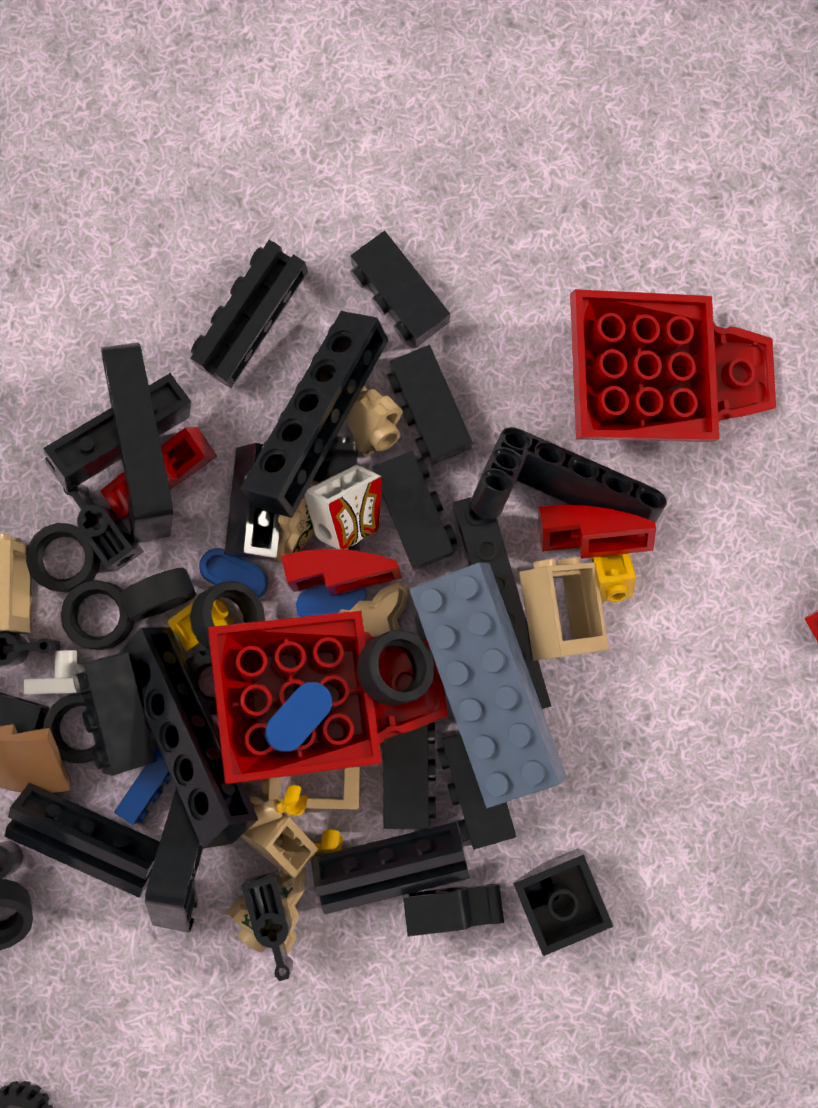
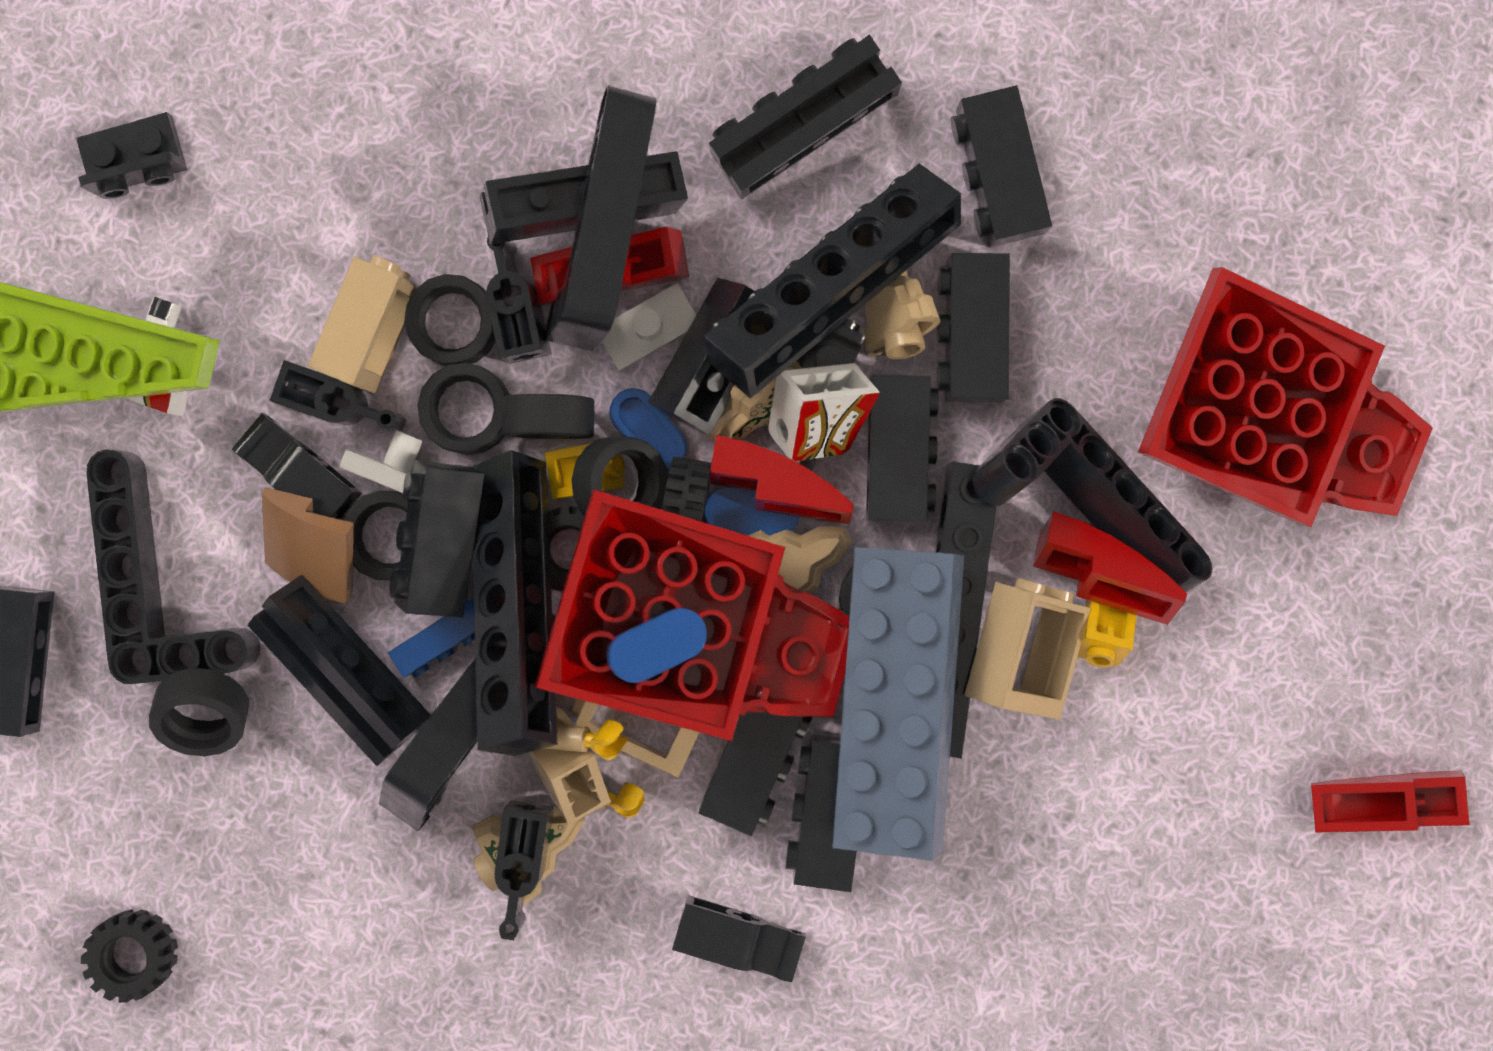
camera: 20 degrees right, 5 degrees up
(202, 503) = (649, 327): none -> white tile
(276, 599) = (687, 488): none -> black tyre
(389, 868) = (685, 861): black brick -> none
(420, 658) = (830, 639): black tyre -> none
(562, 902) = (871, 990): black slope -> none

